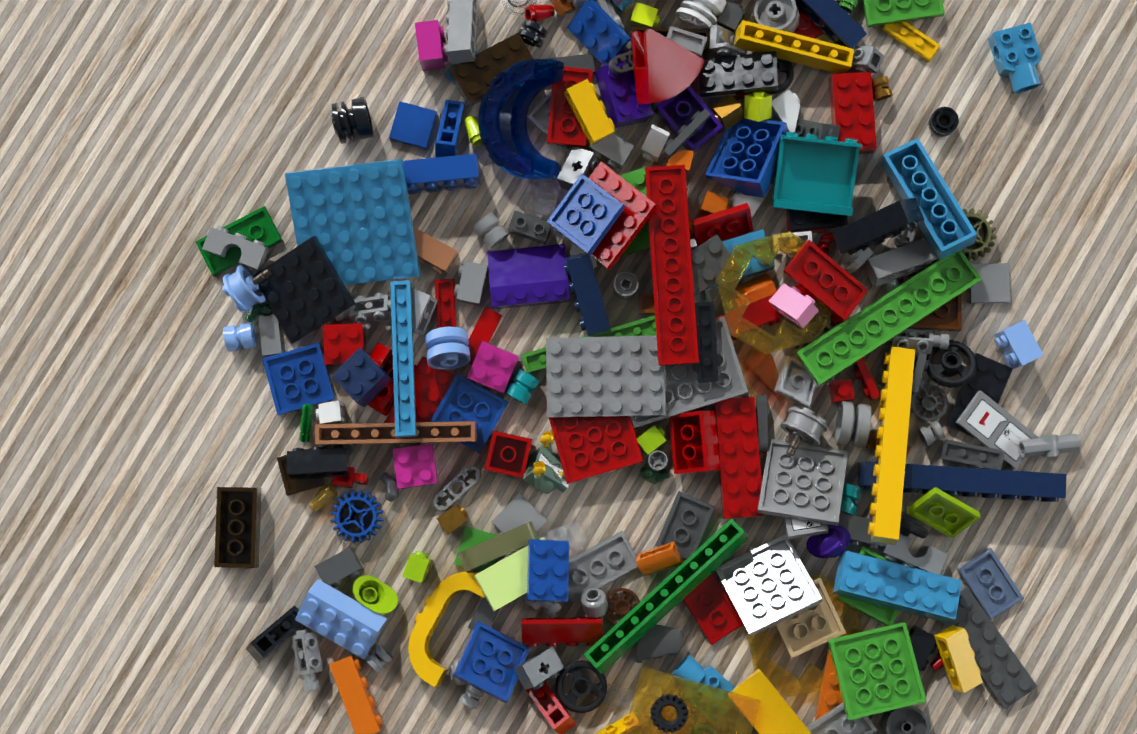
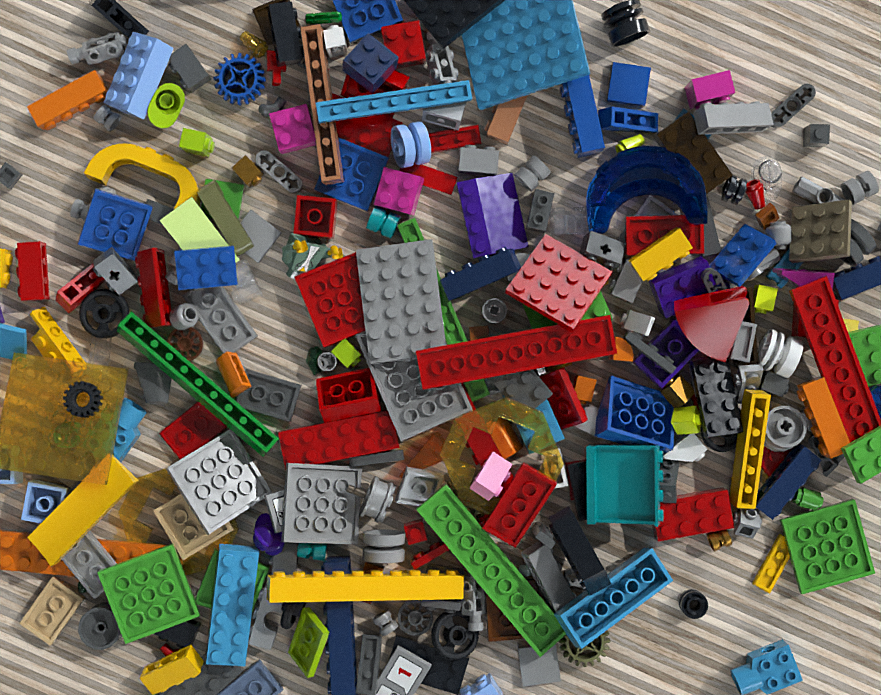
camera: 80 degrees right, 5 degrees up
(586, 214) = (557, 262): plate -> none
(707, 343) = (444, 395): black plate -> none
(825, 241) = (560, 500): red arm -> none

